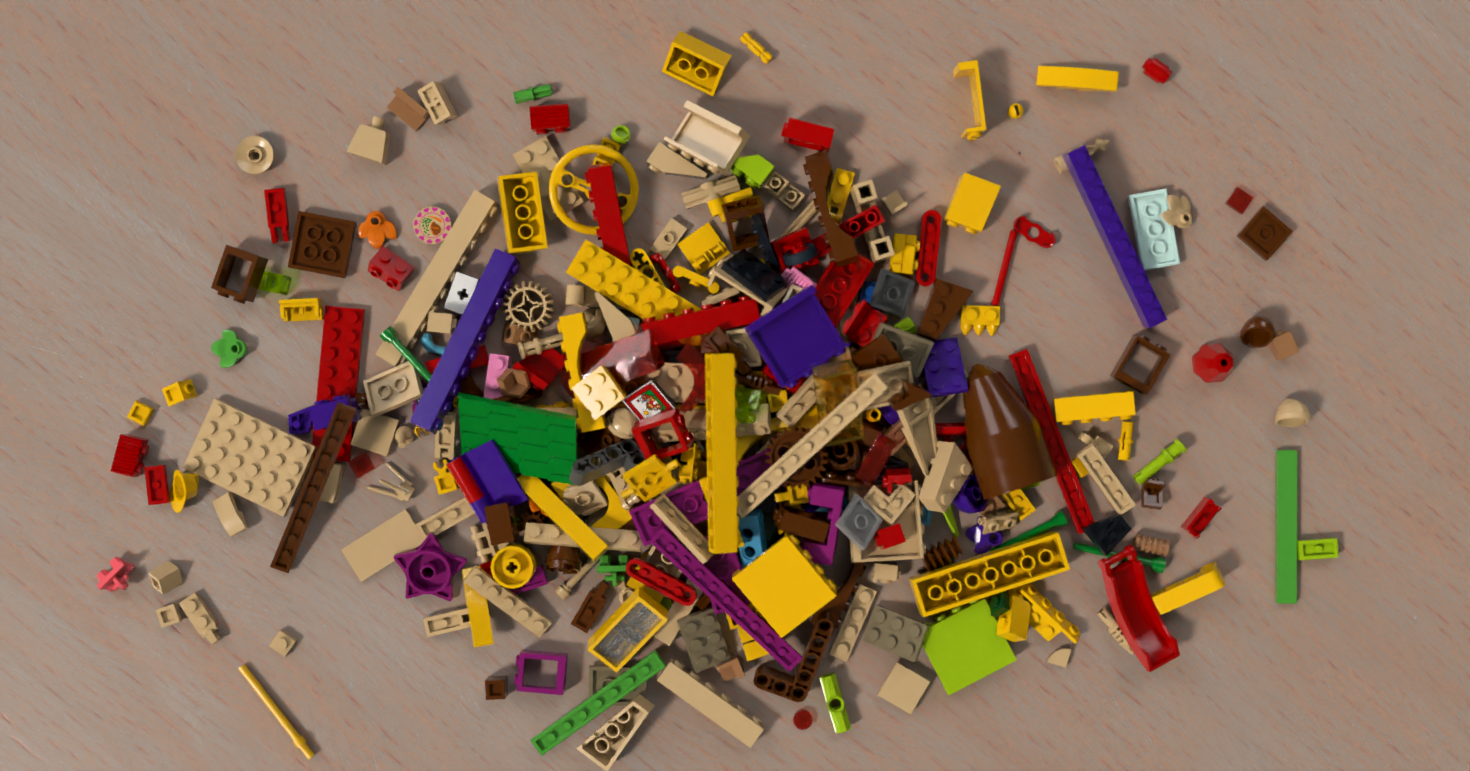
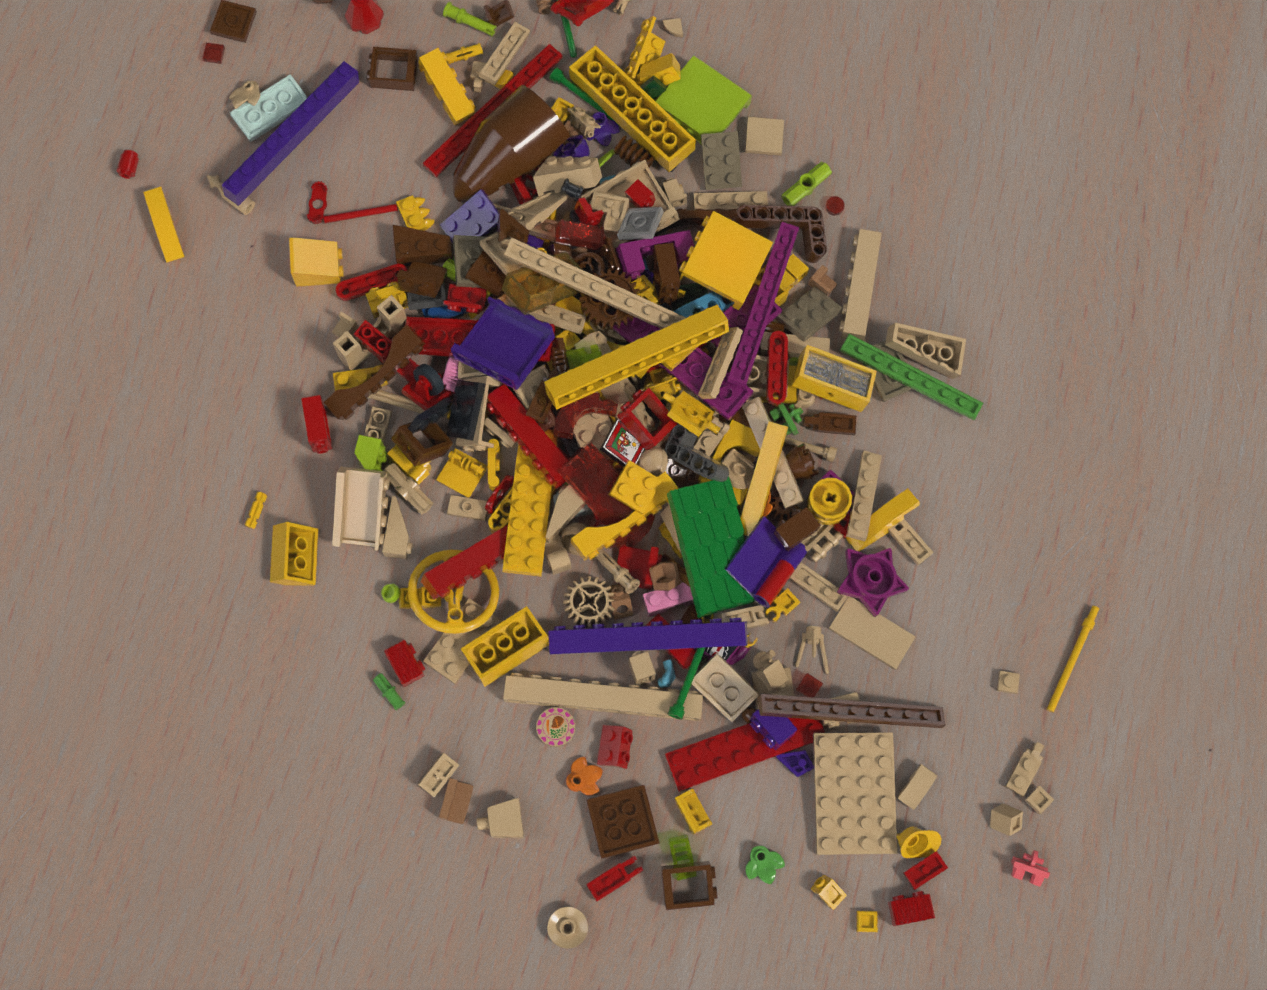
camera: 115 degrees left, 15 degrees down
(382, 435) = (773, 675): none -> tan slope
(461, 283) = (596, 670): white brick -> none
(496, 687) = (944, 470): reddish brown panel -> none
(562, 659) = (901, 422): magenta window -> none
(905, 294) = (422, 279): none -> reddish brown bracket
(924, 472) = (571, 189): none -> black bush
(971, 69) = (219, 296): yellow panel -> none
(1012, 112) = (217, 266): yellow hinge -> none
(1107, 532) = (549, 33): black wing -> none

